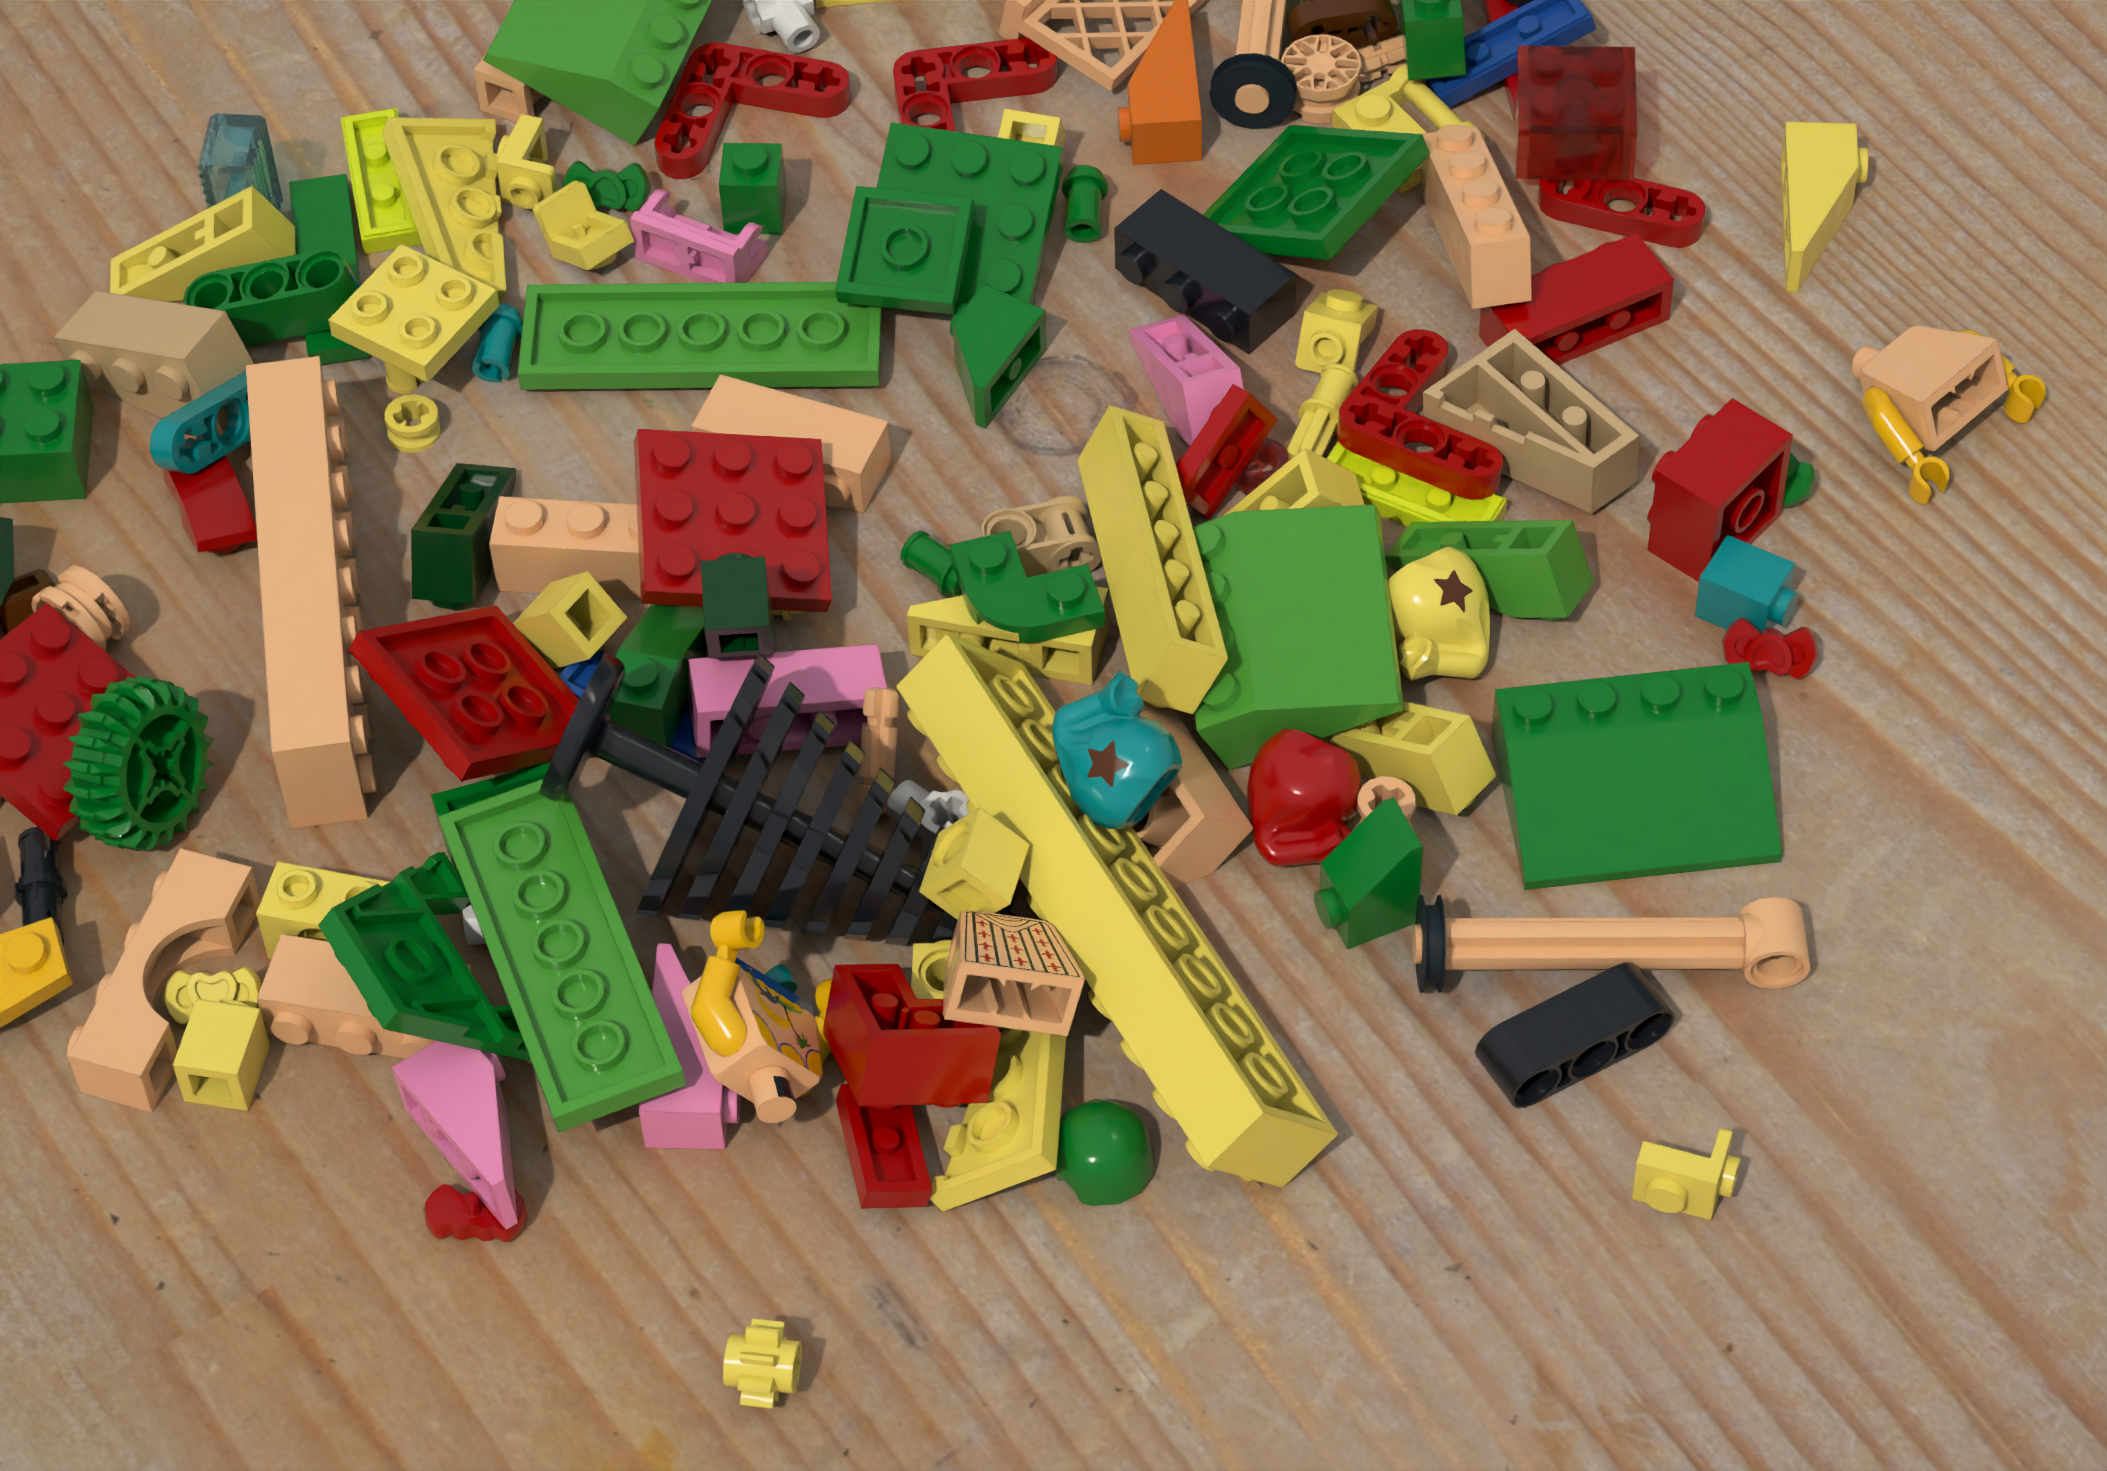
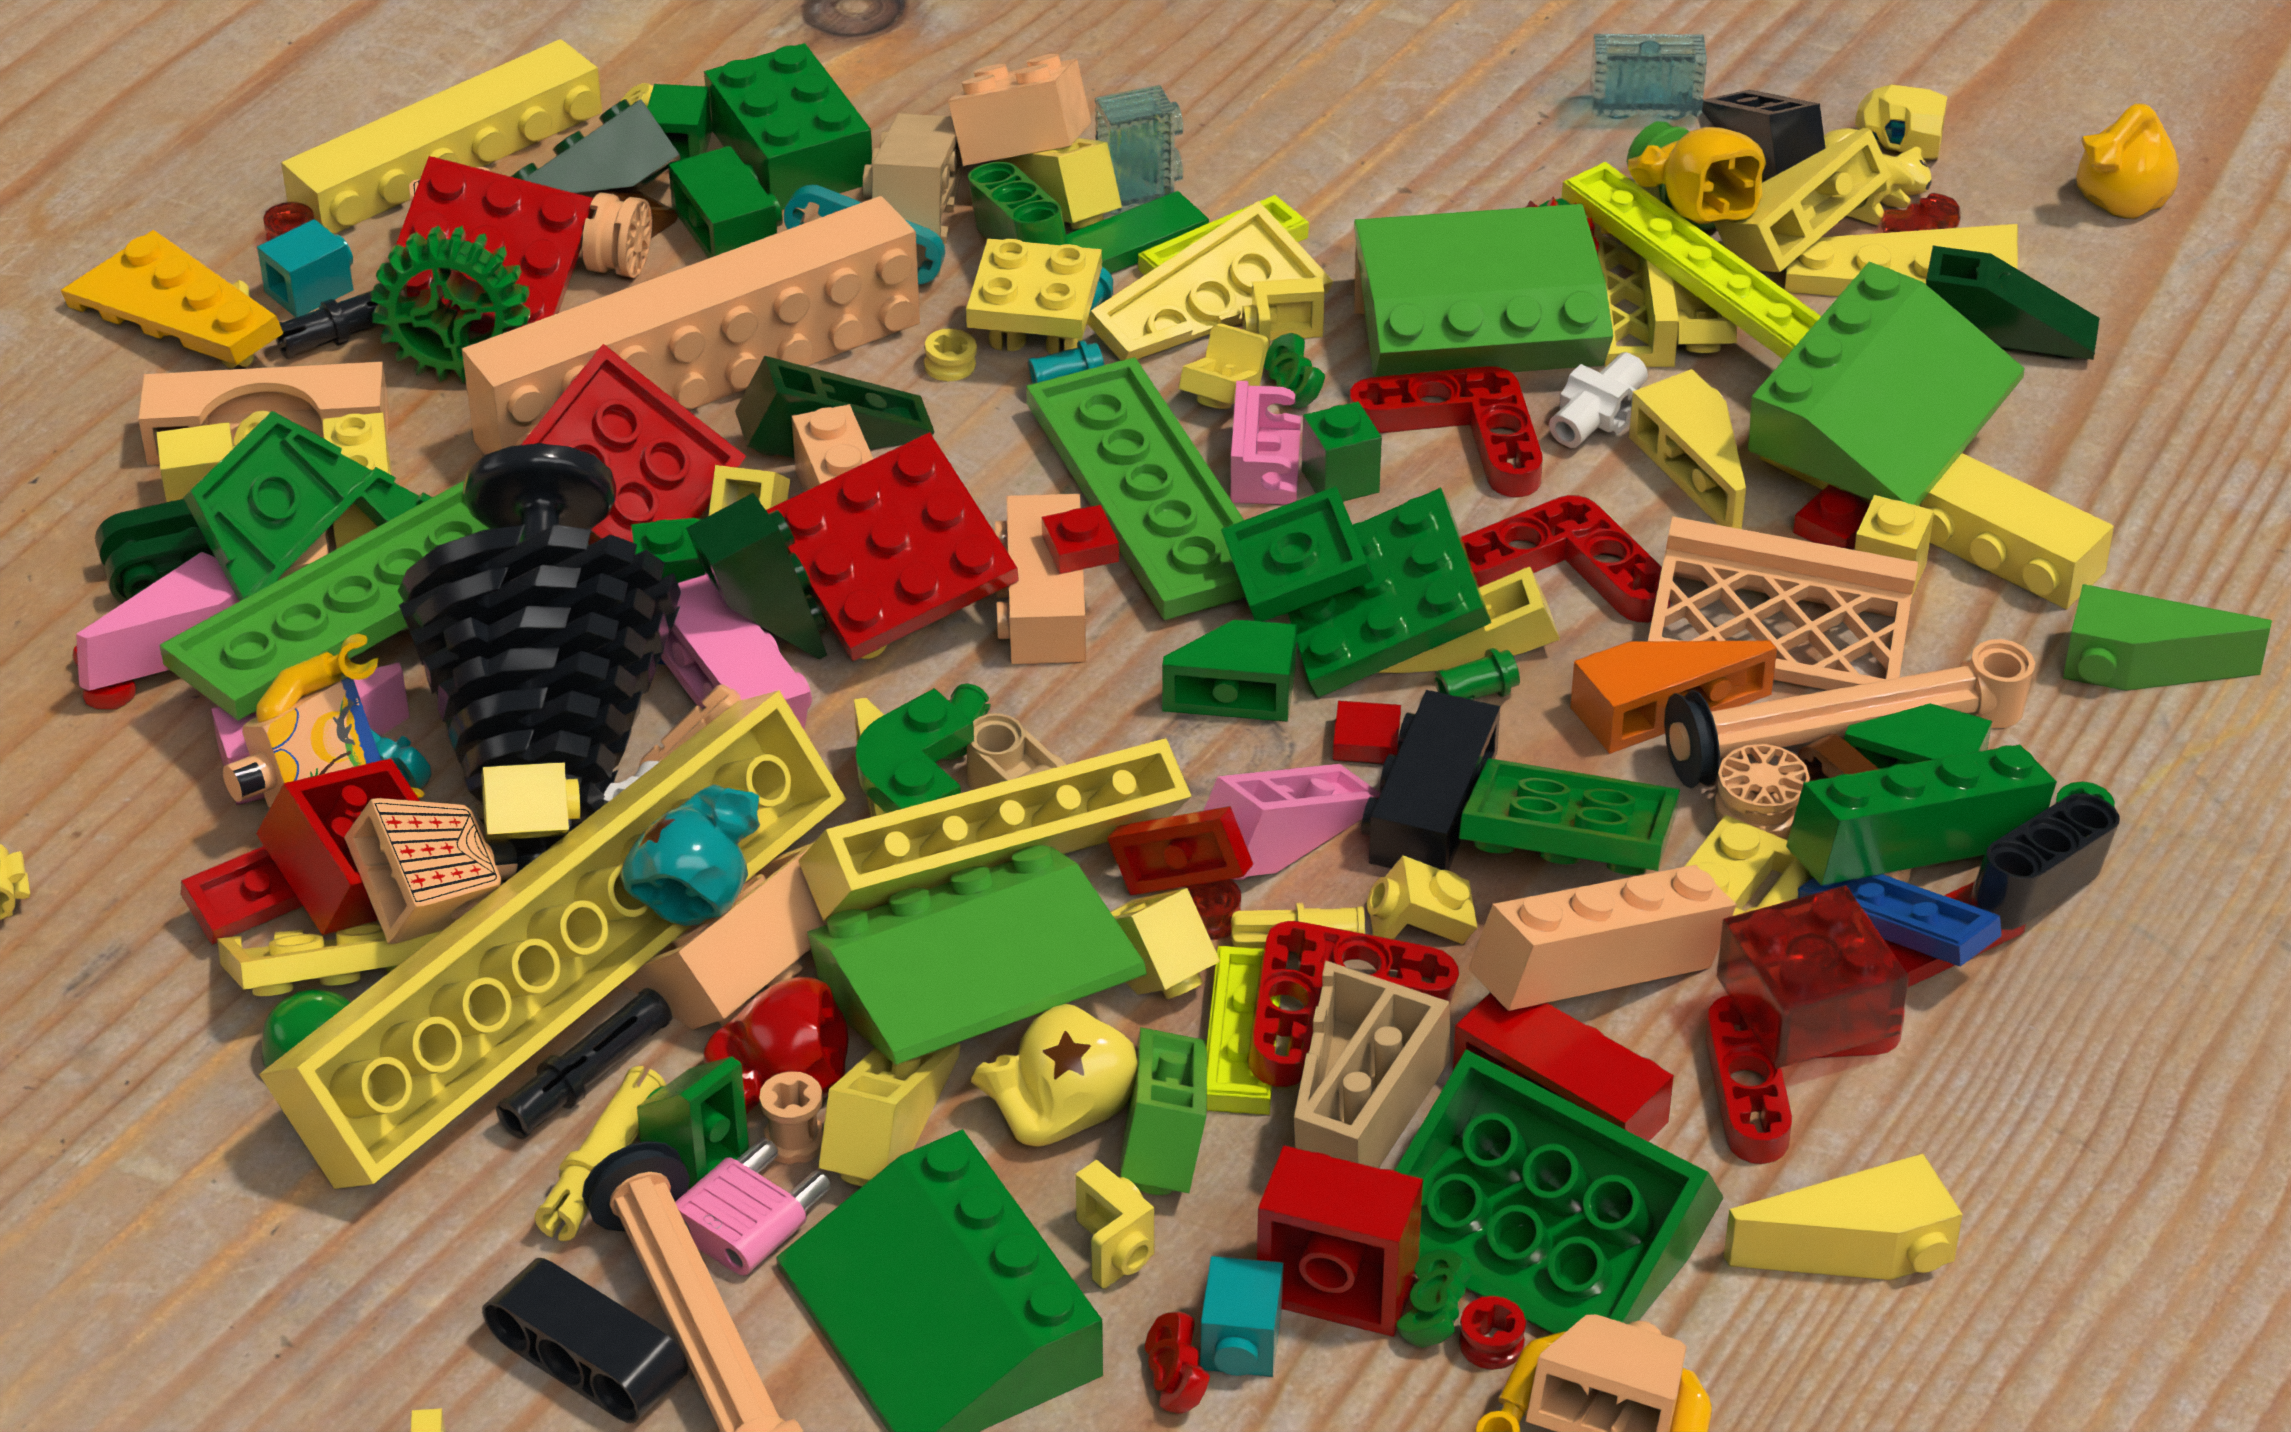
camera: 65 degrees right, 10 degrees down
(81, 521) = (722, 201): none -> green brick
(133, 236) = (1019, 110): none -> light nougat brick
(362, 1135) = (147, 545): none -> dark green brick
(795, 388) = (1080, 539): none -> red plate
(1102, 298) = (1366, 731): none -> red tile
(1249, 966) = (564, 1078): none -> black pin
(1372, 980) = (613, 1131): none -> light yellow pin
(1475, 880) = (743, 1215): none -> bright pink piece
(1606, 634) = (1117, 1219): none -> light yellow bracket
(1722, 336) = (1552, 1199): none -> green slope
(1819, 433) = (1479, 1319): none -> red bush

